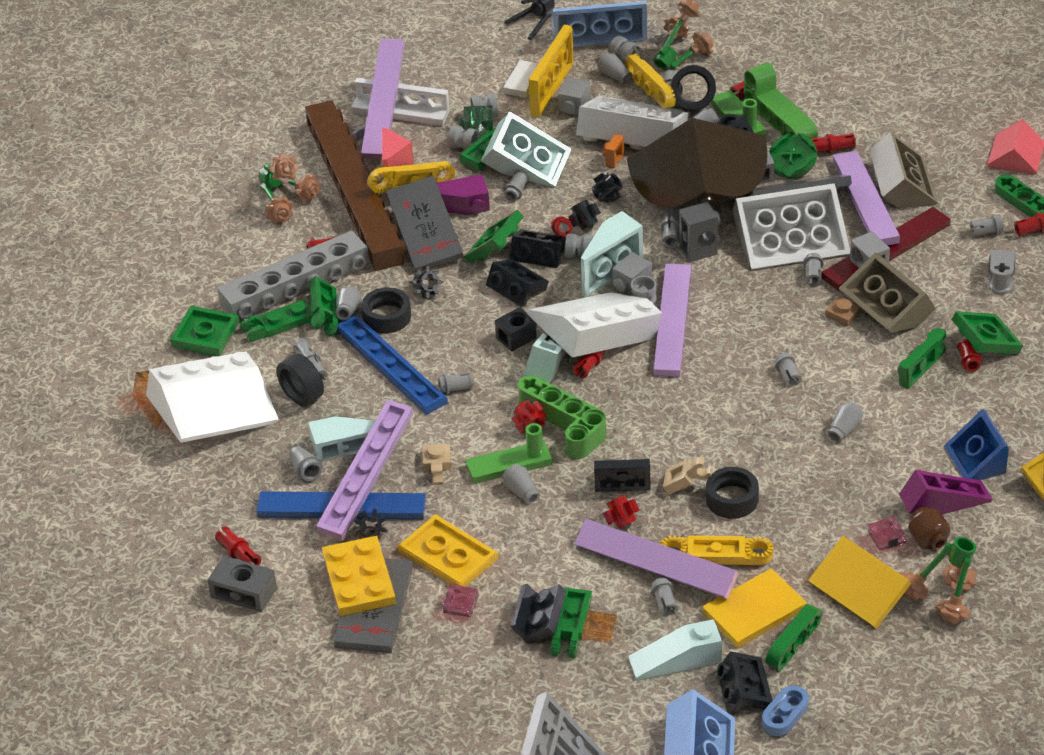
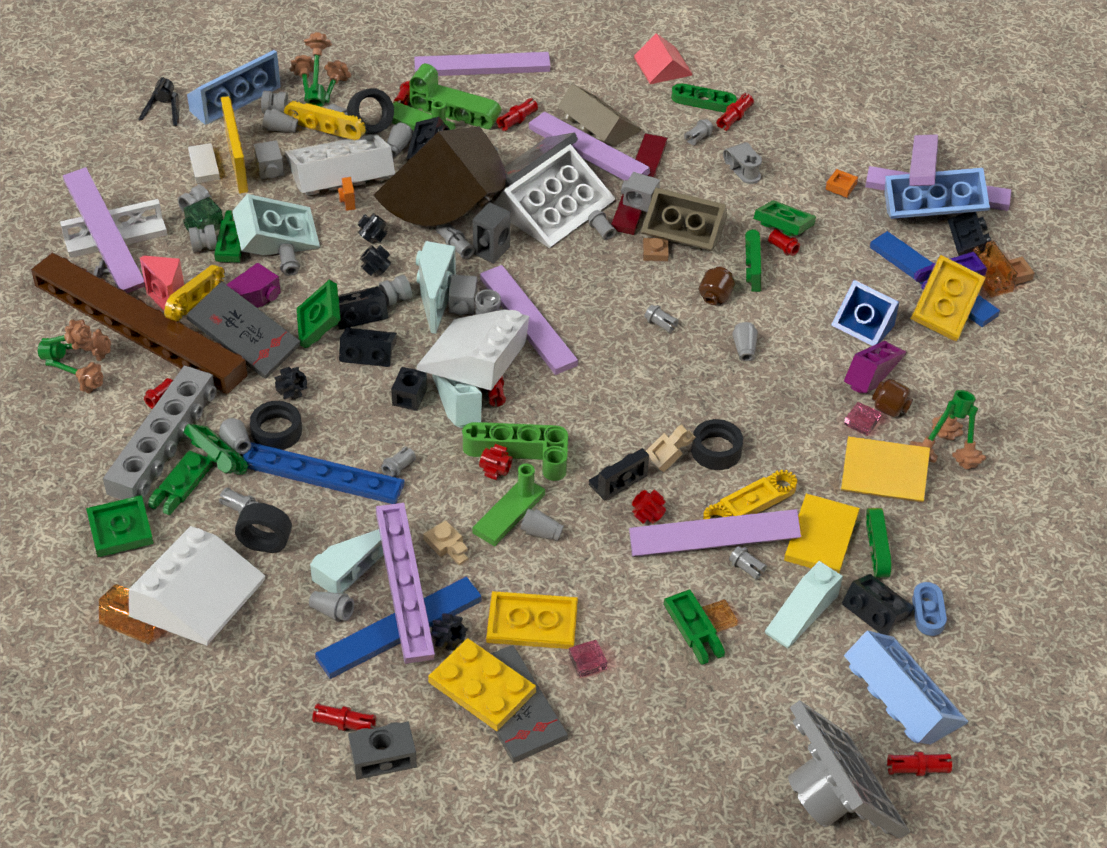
camera: 40 degrees left, 5 degrees up
(537, 613) = (666, 633): black bracket -> none
(567, 228) = (368, 278): red pin -> none
(793, 155) = (503, 133): green tile -> none
(843, 88) = (487, 63): none -> lavender tile
(864, 363) = (716, 285): none -> reddish brown head

